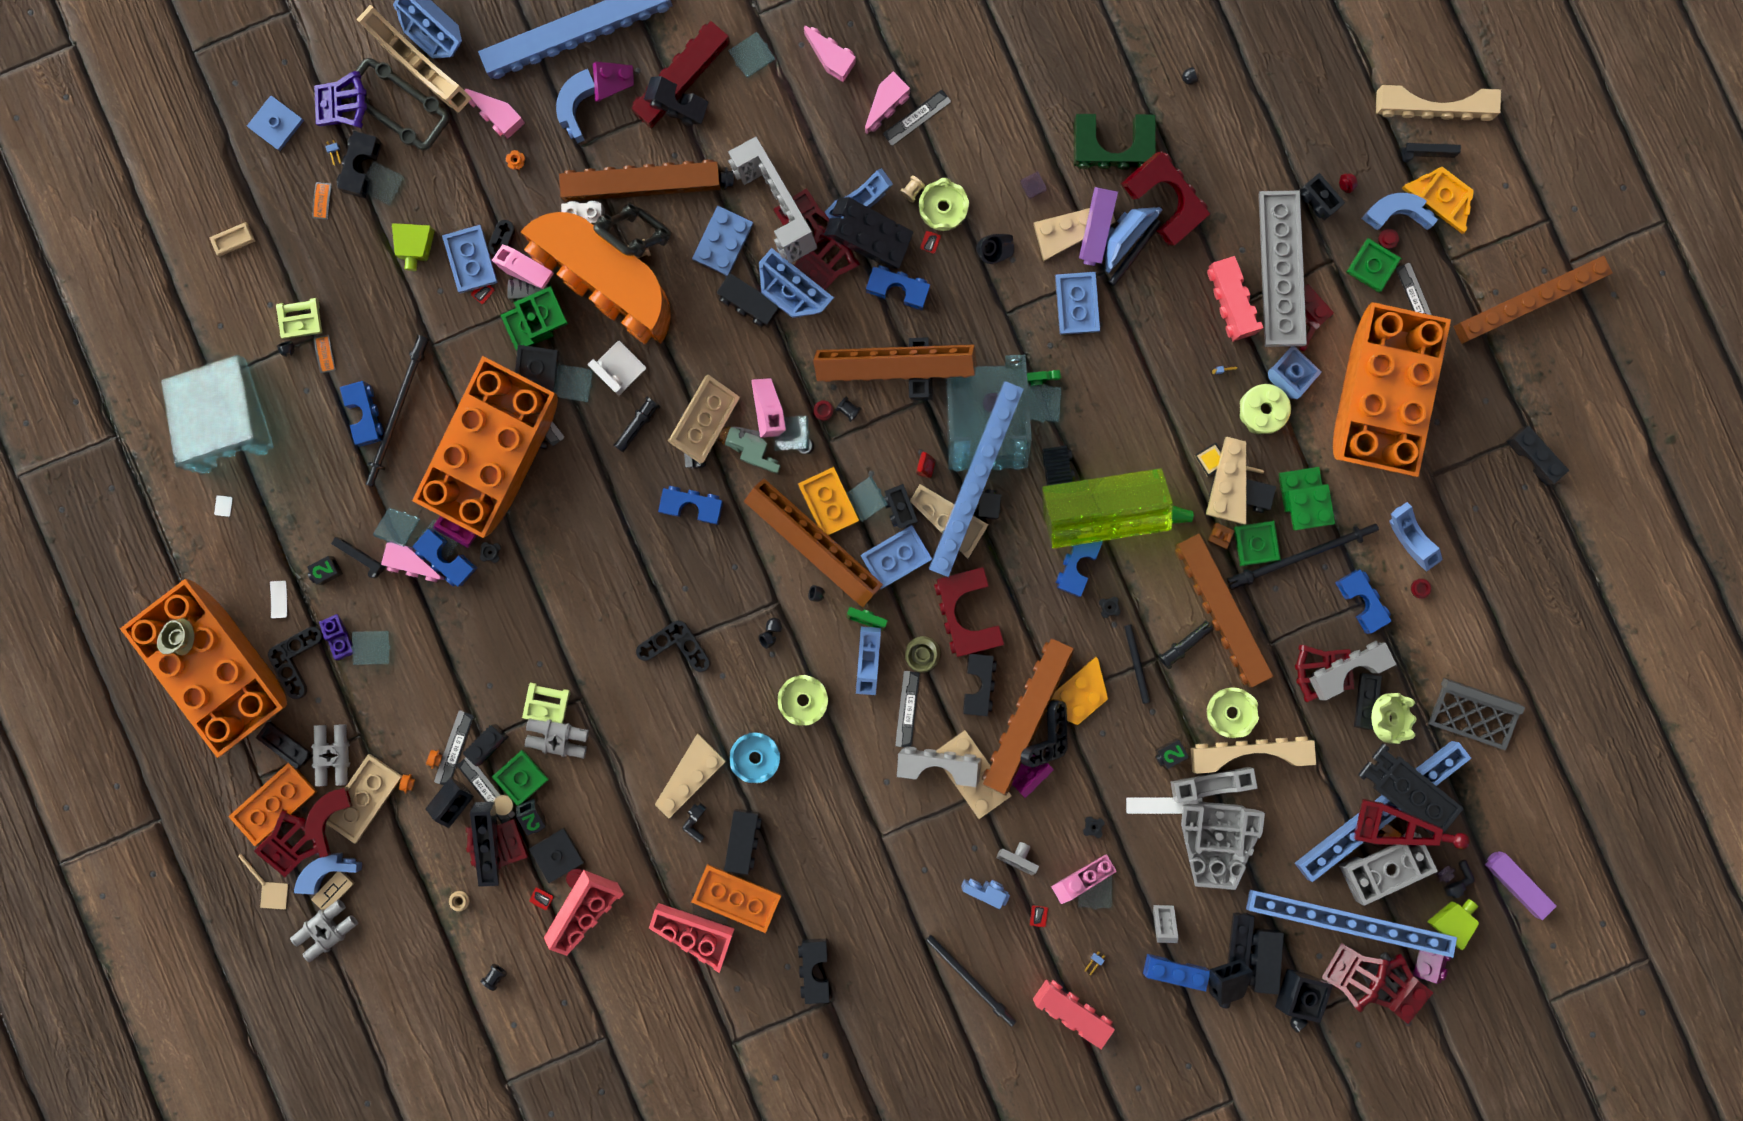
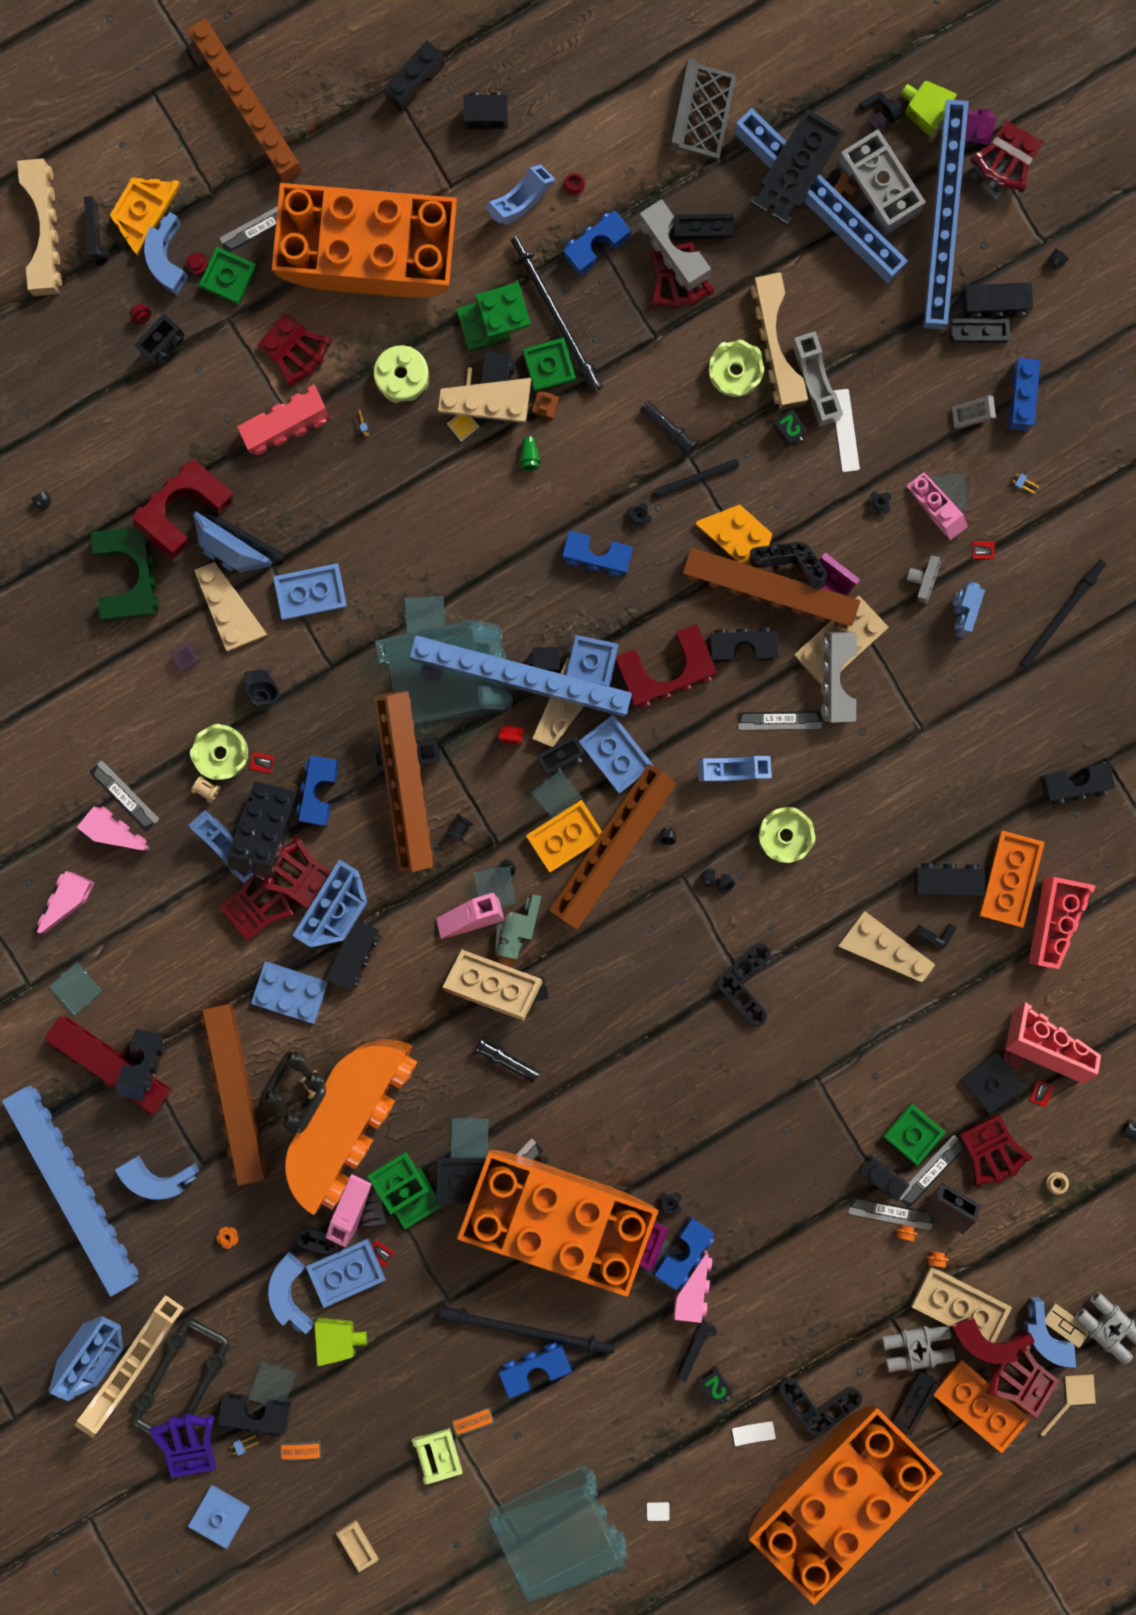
camera: 95 degrees left, 0 degrees up
(176, 637) = (817, 1538): olive piece -> none
(286, 347) = (471, 1466): black hinge -> none
(337, 637) = (786, 1361): dark purple slope -> none
(370, 647) = (793, 1321): clear light blue piece -> none
(396, 527) = (656, 1312): clear light blue piece -> none
(458, 200) = (280, 1294): none -> medium blue arch
(485, 842) = (991, 1161): black slope -> none
(500, 113) = (177, 1261): bright pink slope -> none
(503, 804) = (946, 1149): tan tile -> none
(530, 817) = (955, 1116): black brick -> none
(544, 710) = (836, 1119): yellowish green plate -> none
(556, 738) = (865, 1100): light grey pin -> none
(589, 210) = (277, 1144): white bracket -> none
(611, 79) = (123, 1141): magenta wing -> none
(618, 368) = (446, 1089): white bracket -> none
(673, 501) = (586, 1007): blue arch -> none
(726, 178) = (219, 997): black plate -> none
(741, 763) = (870, 886): medium azure plate -> none
(750, 162) = (198, 971): light grey plate -> none
(823, 410) = (464, 855): dark red plate -> none
(866, 617) = (687, 776): green plate -> none
(922, 654) = (717, 711): olive piece -> none
(982, 546) = (592, 660): none -> medium blue plate
(1038, 378) = (399, 625): green plate -> none
(1057, 465) = (494, 590): black brick -> none
(1073, 1013) = (1083, 498): coral wedge -> none
(1098, 226) = (222, 579): medium lavender brick -> none
(1107, 508) = (533, 529): clear neon green brick -> none
(1220, 841) = (877, 364): light grey wedge -> none
(1223, 610) = (626, 392): dark orange brick -> none
(1229, 982) = (1026, 335): black torso -> none
(1282, 268) = (244, 373): light grey plate -> none
(1293, 373) = (358, 347): medium blue slope -> none
(1303, 996) = (1029, 256): black slope -> none
(1344, 969) = (995, 217): plate -> none
(1369, 822) = (834, 206): dark red plate -> none
(1402, 719) = (719, 187): yellowish green plate -> none
(1497, 516) = (485, 111): none -> black brick
(1520, 885) = (878, 42): medium lavender brick -> none

